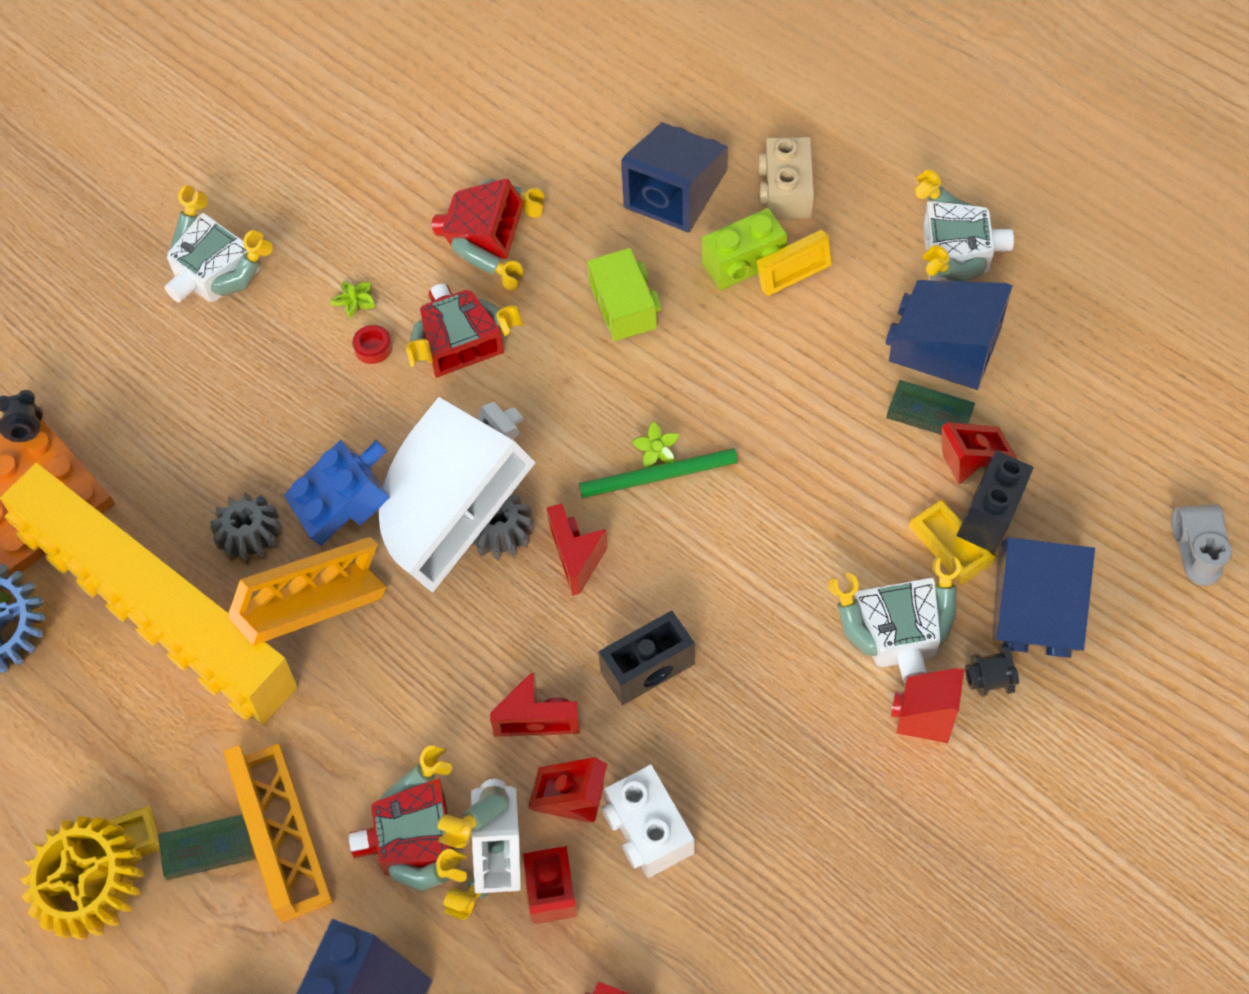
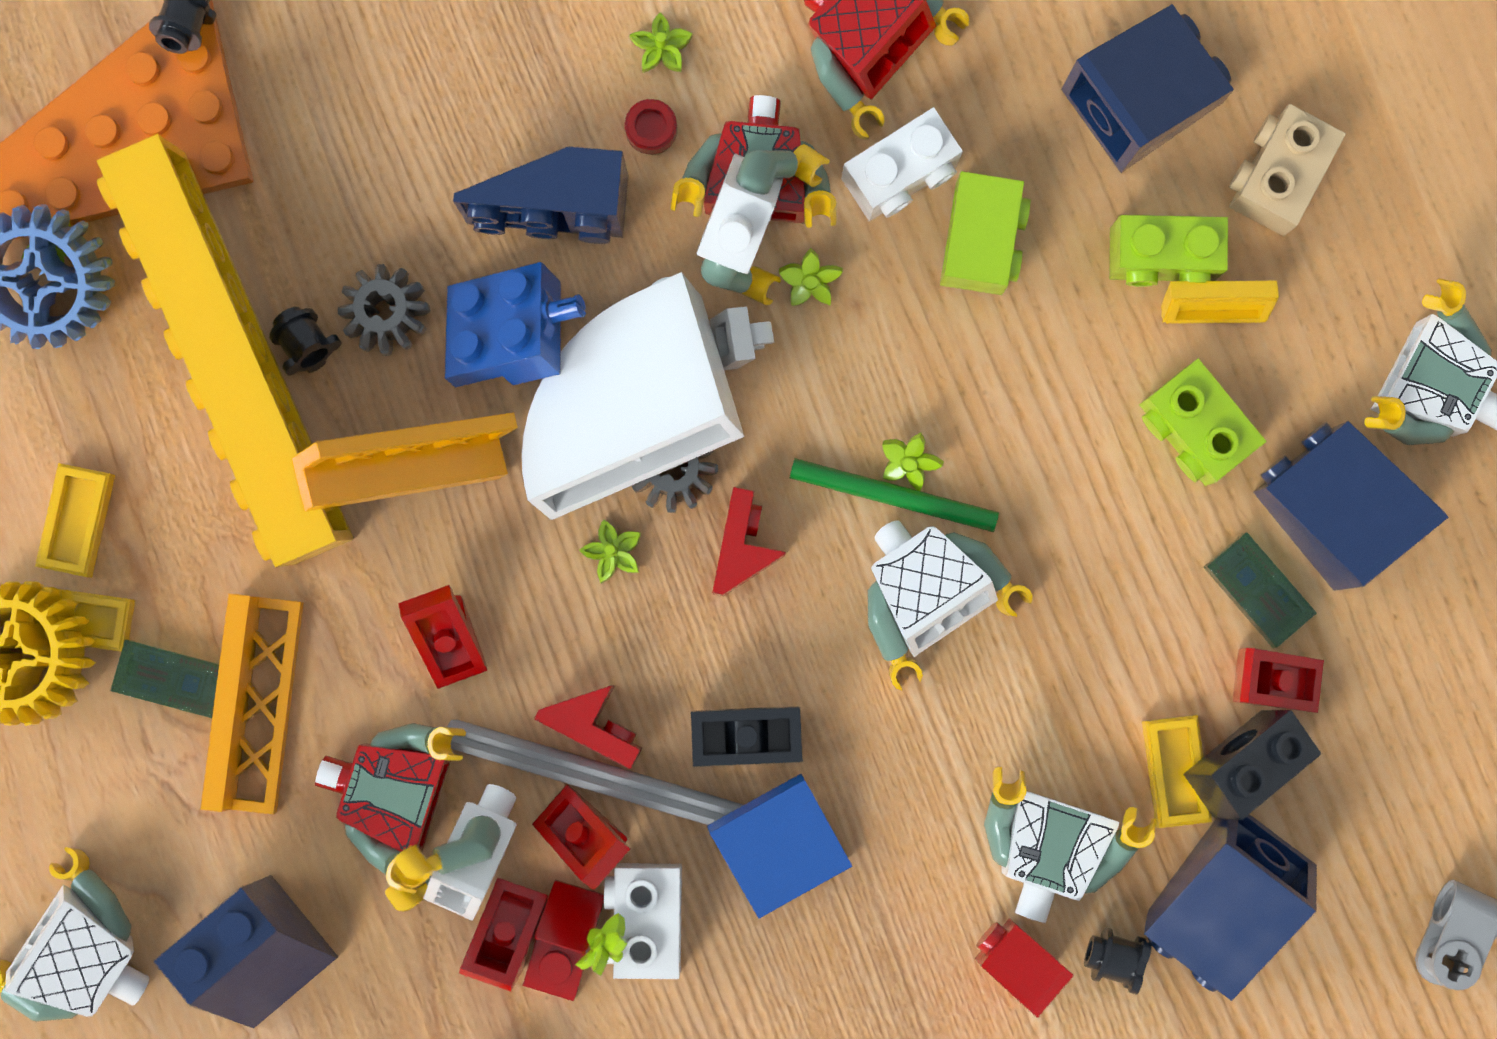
camera: 25 degrees right, 25 degrees up
(82, 775) = (75, 520): none -> yellow tile
(200, 571) = (302, 340): none -> black brick
(326, 400) = (562, 192): none -> dark blue slope
(395, 706) = (443, 635): none -> red slope
(461, 346) = (743, 216): none -> torso
(487, 601) = (612, 551): none -> lime plant
(527, 375) = (810, 279): none -> lime plant
(548, 283) = (902, 165): none -> white brick
(564, 747) = (590, 774): none -> light grey axle
(597, 875) = (563, 939): none -> red slope
(626, 837) = (605, 944): none -> lime plant
(713, 721) = (779, 846): none -> blue tile
(716, 508) = (930, 589): none -> white torso
(828, 332) = (1200, 424): none -> lime brick

